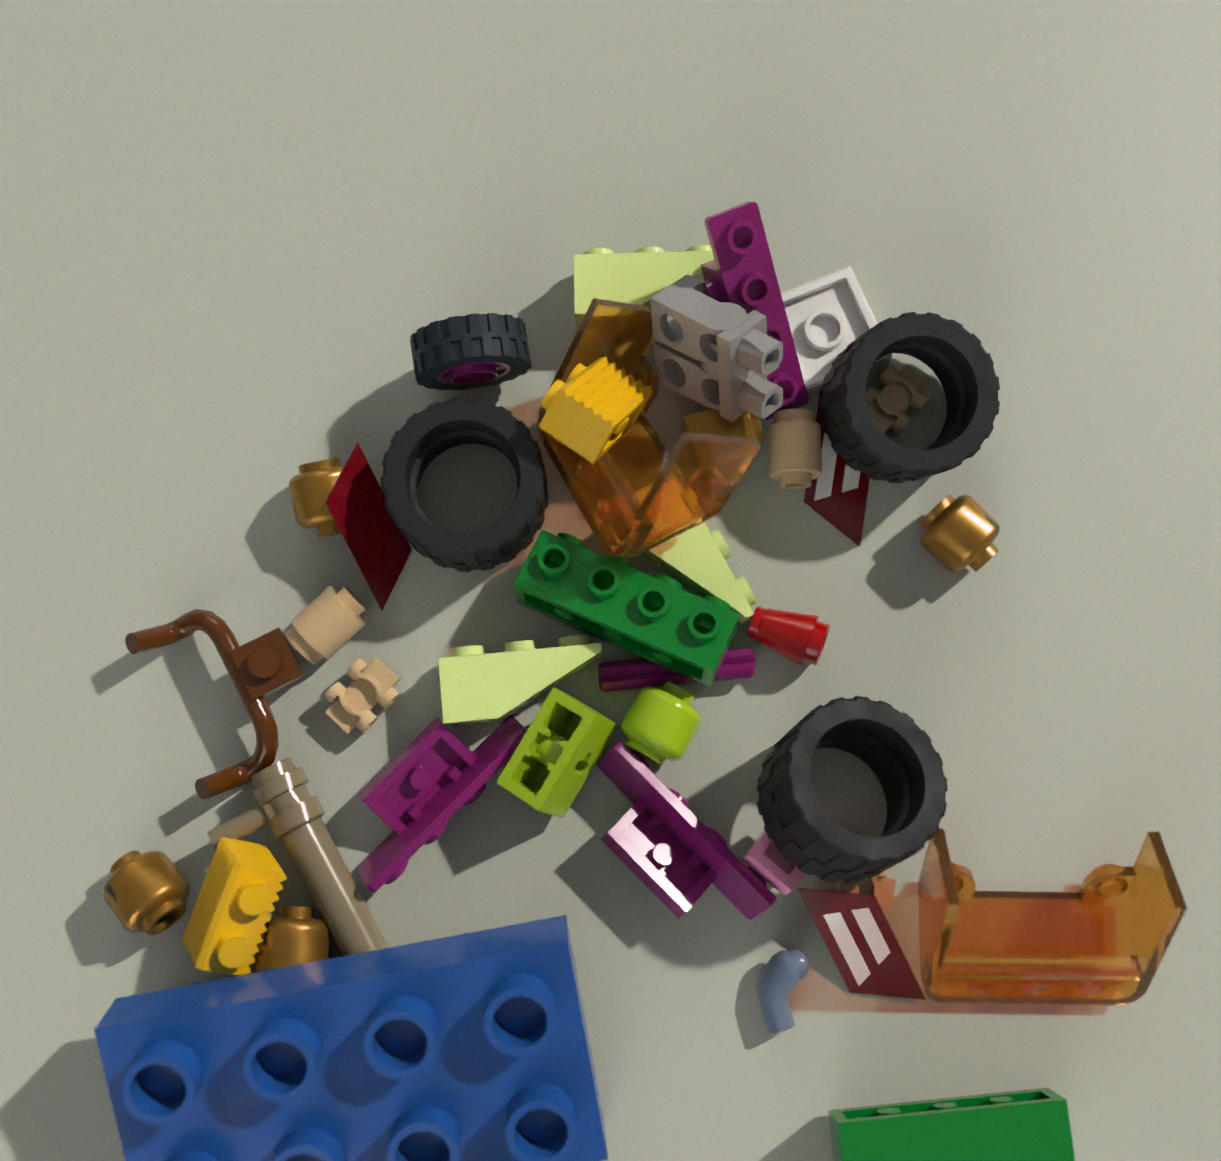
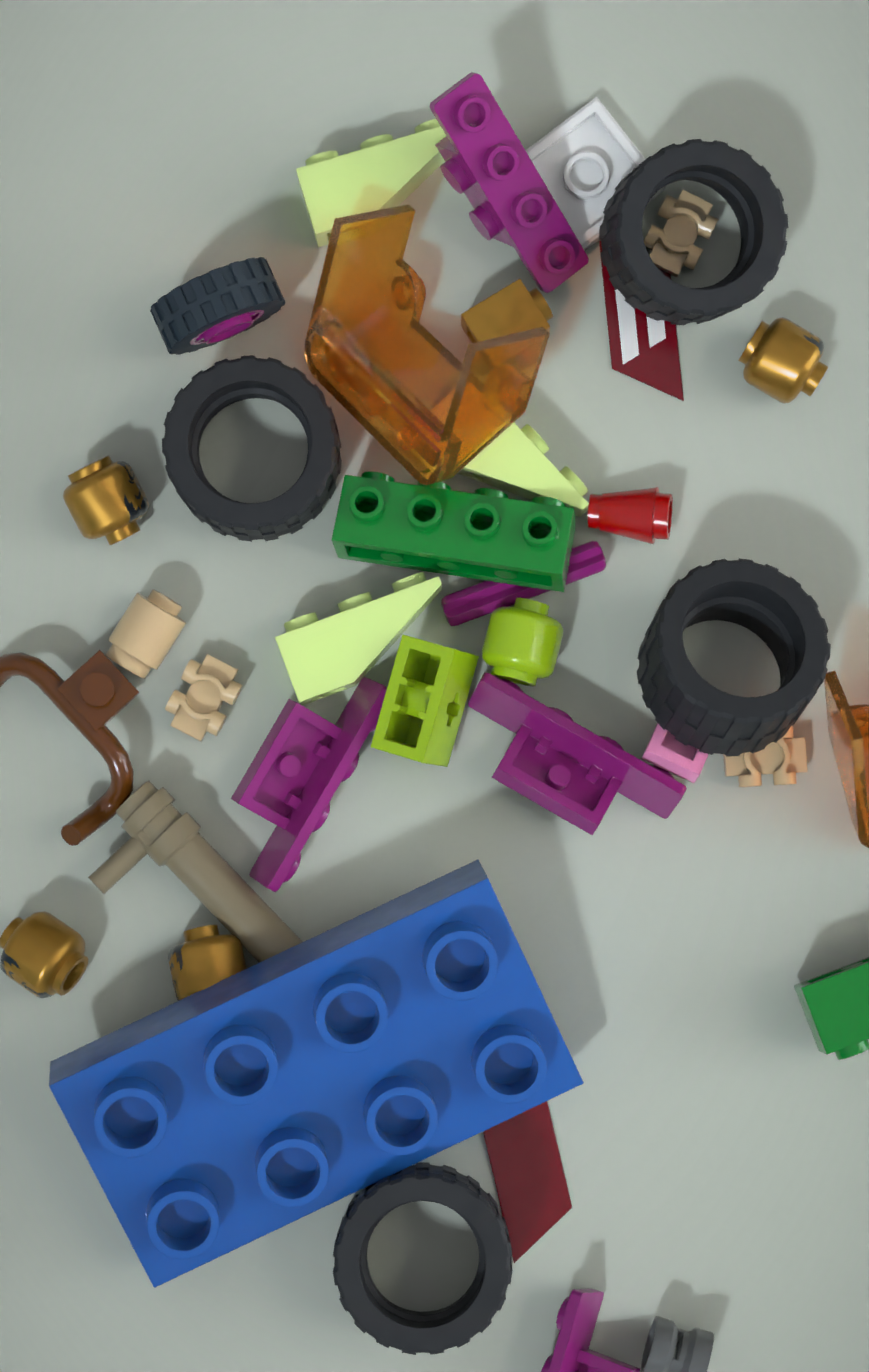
camera: 10 degrees left, 5 degrees up
(233, 907) = (139, 942): yellow brick -> none
(367, 527) = (161, 519): dark red sticker -> none
(593, 408) = (365, 332): yellow brick -> none
(717, 351) = (476, 239): light grey hips -> none
(775, 985) = (708, 876): sand blue arm -> none
(794, 448) = (587, 315): tan brick -> none
(861, 943) = (785, 810): dark red sticker -> none

